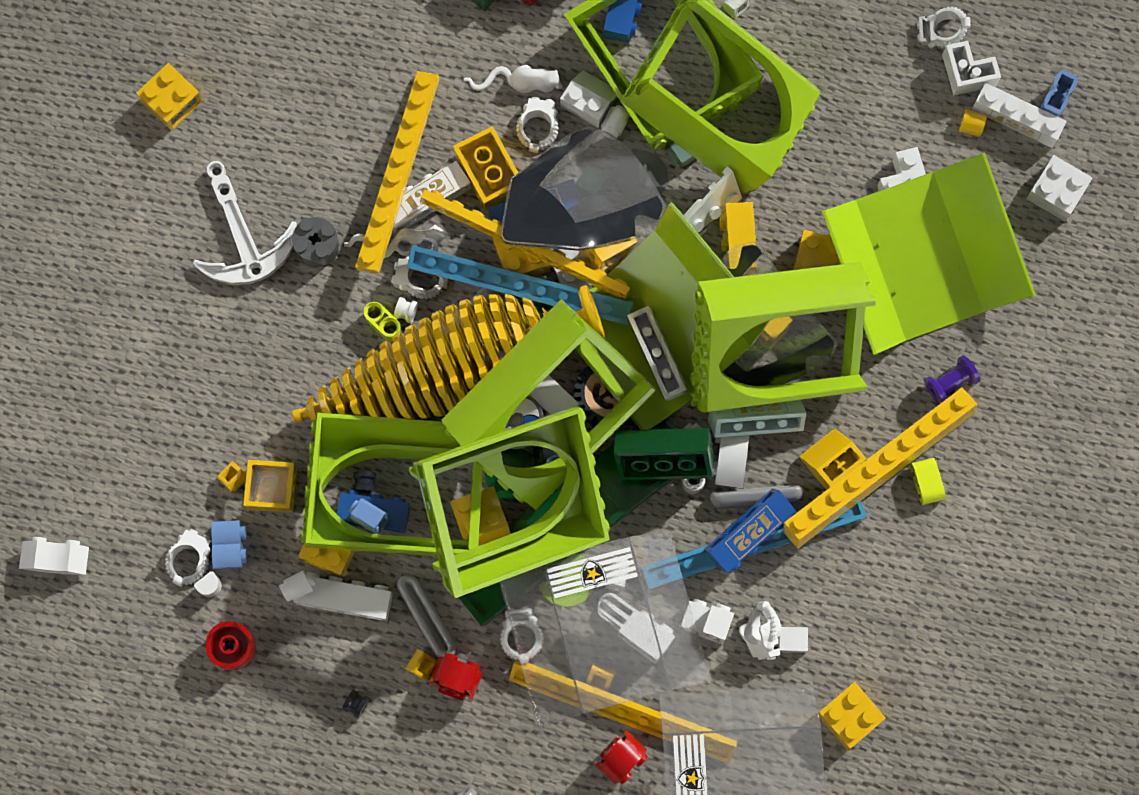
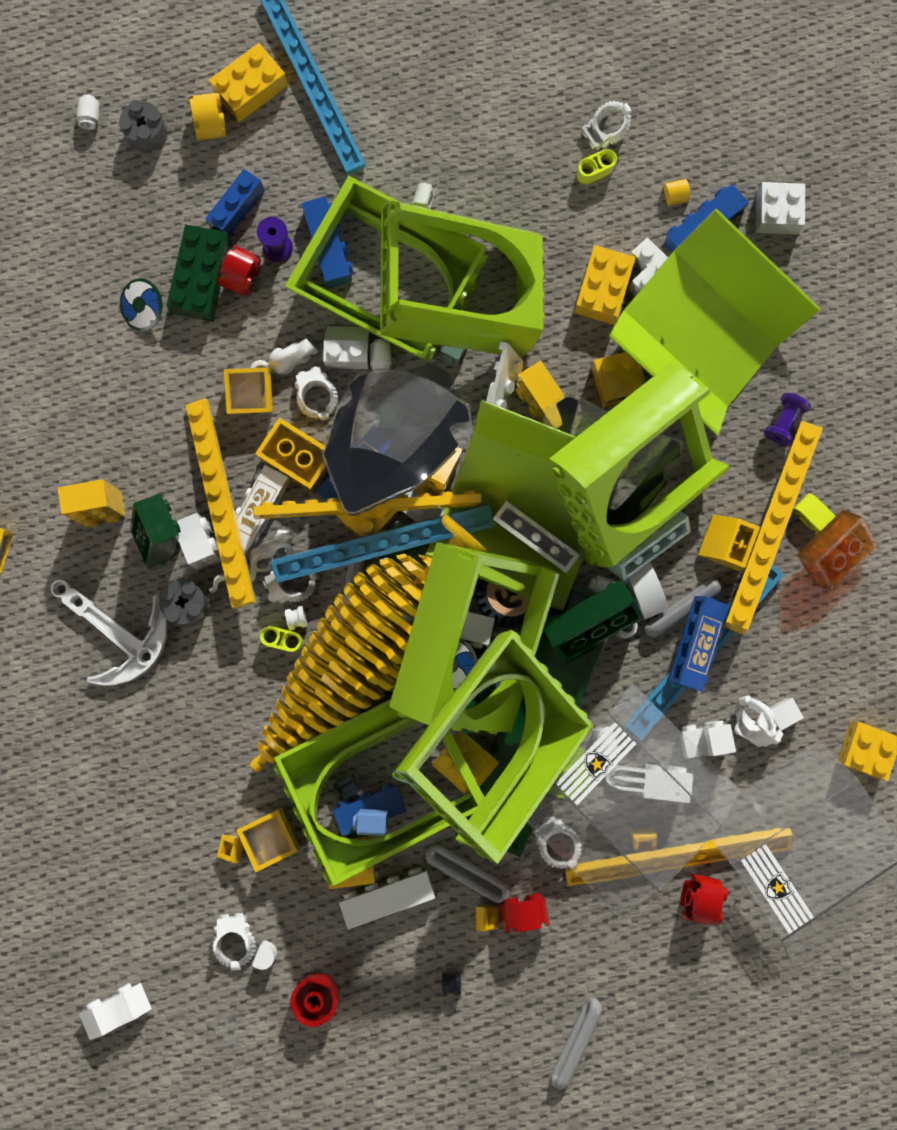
camera: 30 degrees left, 5 degrees up
(228, 545) = (261, 910): medium blue brick -> none
(287, 110) = (91, 503): none -> yellow brick
(297, 586) = (344, 916): white brick -> none
(327, 163) = (154, 530): none -> dark green brick
(358, 194) = (197, 541): none -> white piece
(479, 88) = (248, 390): none -> clear piece
(855, 168) = (604, 285): none -> yellow brick
(910, 55) = (597, 168): none -> neon yellow beam
(926, 521) = (837, 550): none -> clear orange brick
(965, 73) = (649, 153): white brick -> none
(1003, 160) = (727, 201): none -> blue brick
(1019, 115) = (712, 165): white brick -> none
(1059, 93) = (735, 131): medium blue brick -> none

